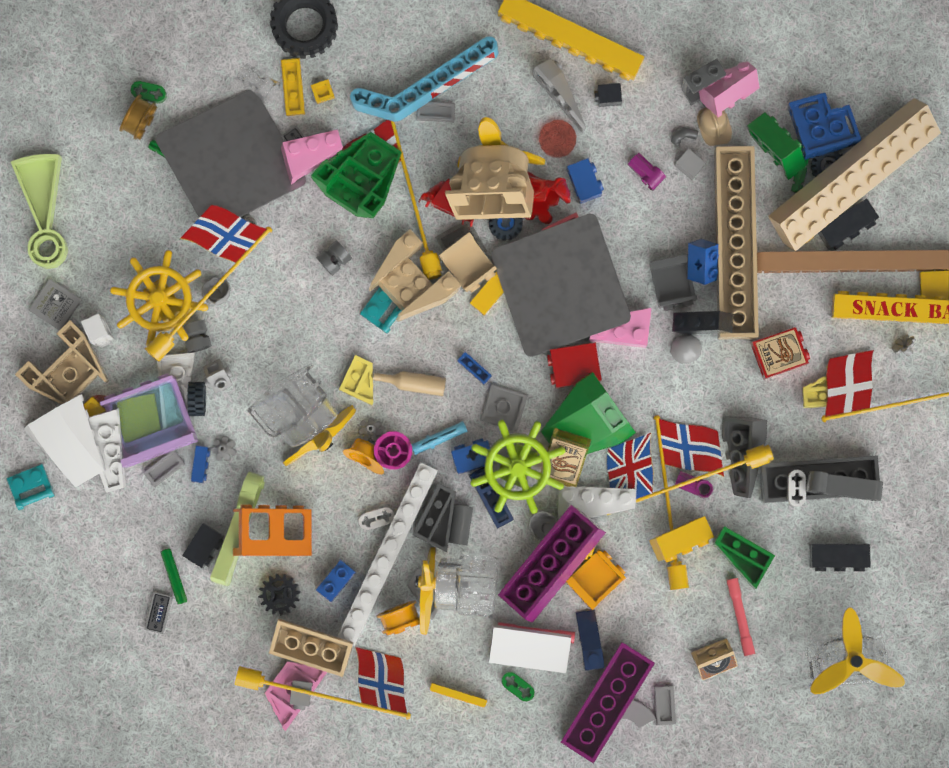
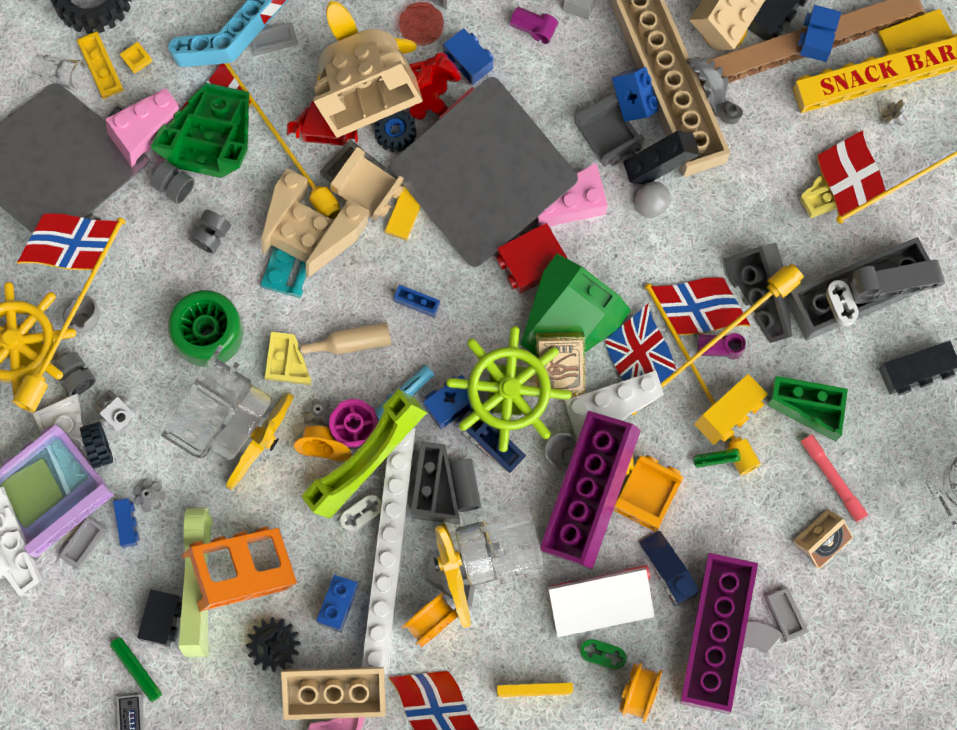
camera: 25 degrees left, 10 degrees down
(302, 322) = (200, 312): none -> green wheel
(317, 206) = (174, 183): none -> dark grey wheel
(425, 463) = (332, 491): none -> lime arch
(504, 405) = (460, 327): light grey tile -> none
(534, 725) = (640, 692): none -> light orange wheel
(657, 571) = (717, 458): none -> green axle
(769, 277) = (717, 88): none -> dark grey plant
(780, 353) = (760, 167): brick -> none
(868, 261) = (819, 33): none -> blue piece

